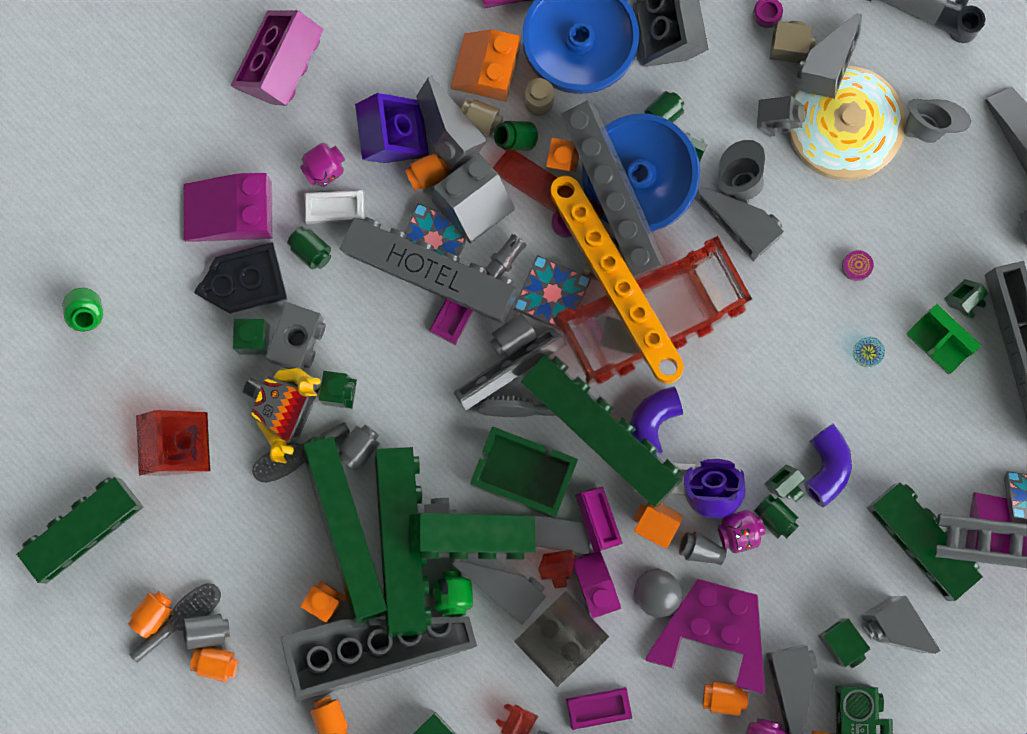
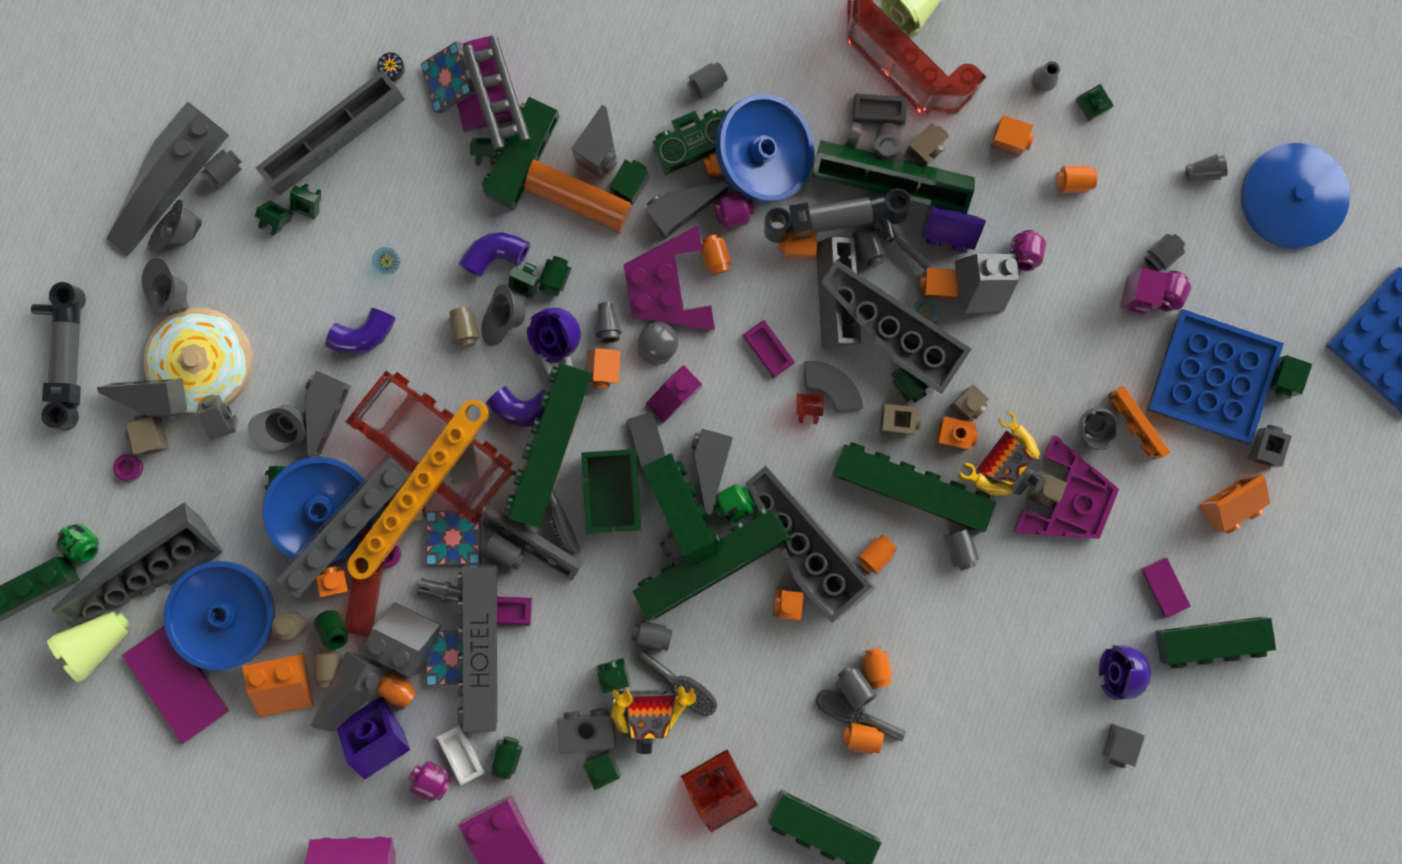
camera: 115 degrees left, 5 degrees up
(244, 280) = (557, 800): black tile -> none
(344, 529) = (723, 615): dark green brick -> none
(557, 567) = (674, 430): clear red tile -> none
(561, 639) = (729, 400): clear smoke piece -> none
(598, 519) = (621, 415): magenta tile -> none
(666, 106) = (250, 515): dark green brick -> none
(741, 531) = (579, 298): magenta head -> none
(759, 445) = (503, 313): none -> dark grey piece
(764, 399) = (463, 327): none -> dark tan brick
(797, 292) = (363, 338): none -> dark purple cylinder
(852, 580) = (577, 196): none -> orange brick
(857, 265) = (317, 299): magenta tile -> none
(943, 339) = (348, 206): green panel -> none
(948, 502) = (482, 147): none -> dark green tile
(965, 259) = (274, 215): none -> dark green tile
(993, 157) = (175, 228): none -> dark grey piece

